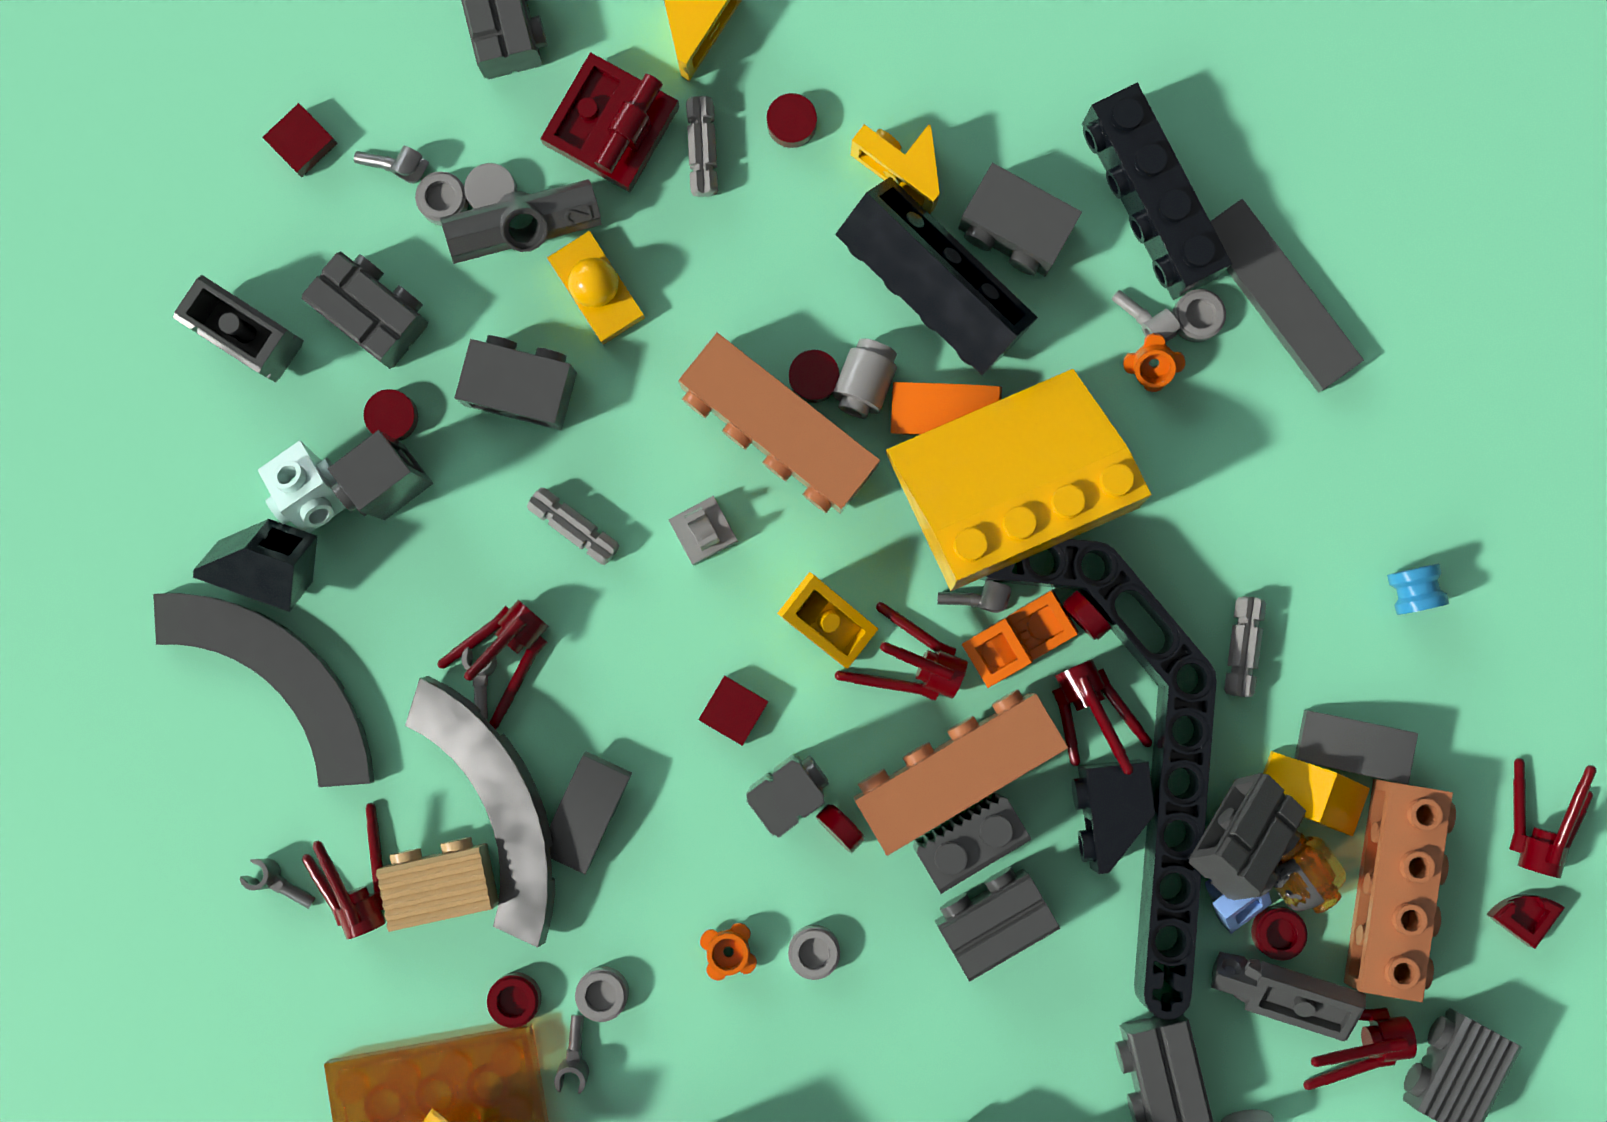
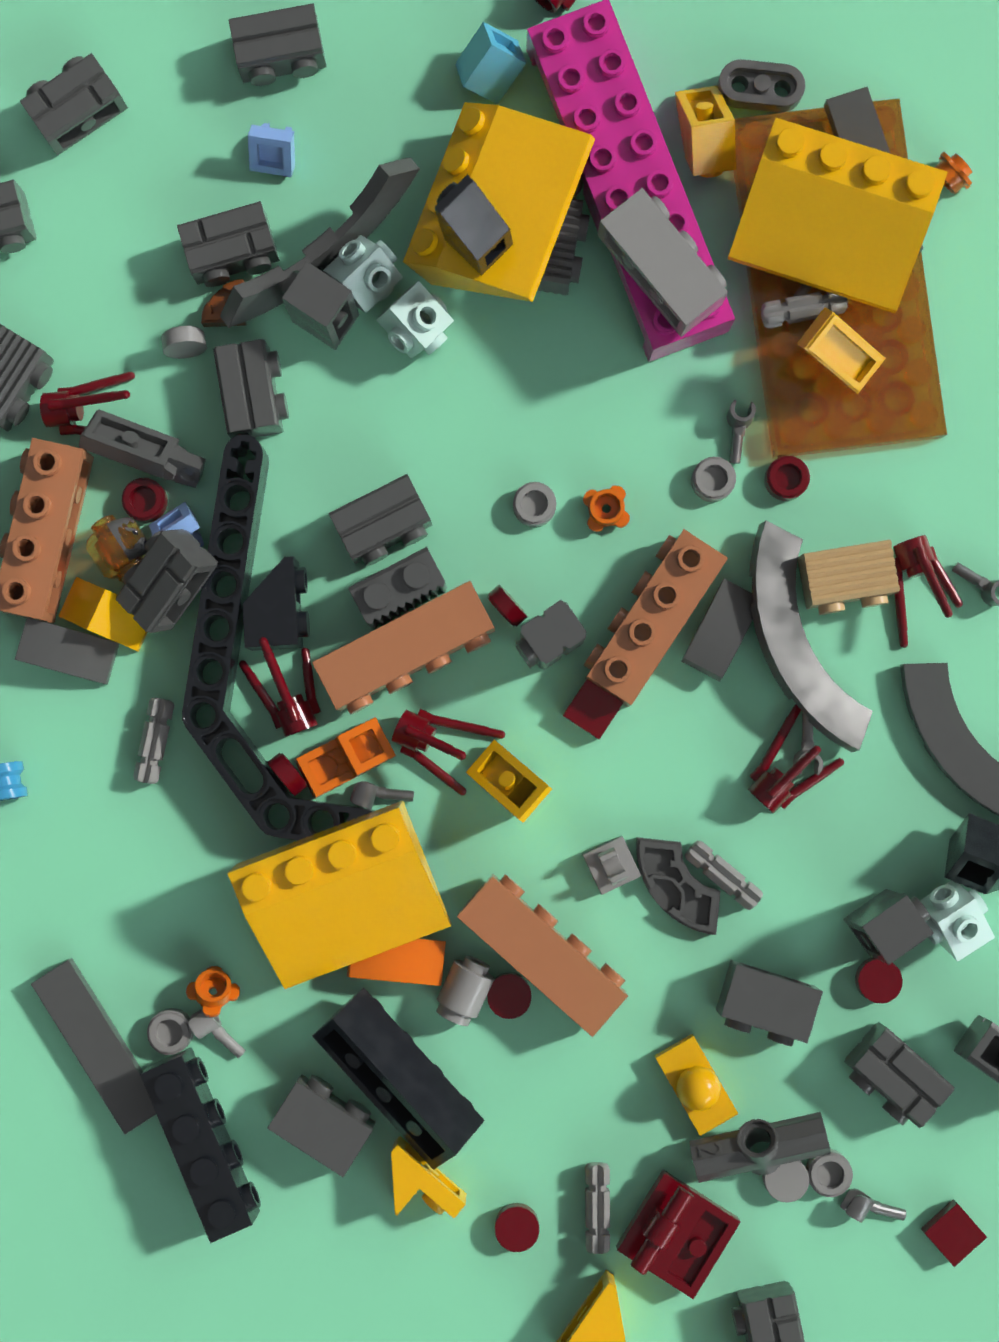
camera: 175 degrees left, 0 degrees up
(629, 509) = (674, 886): none -> dark grey tile
(663, 824) = (655, 618): none -> nougat brick

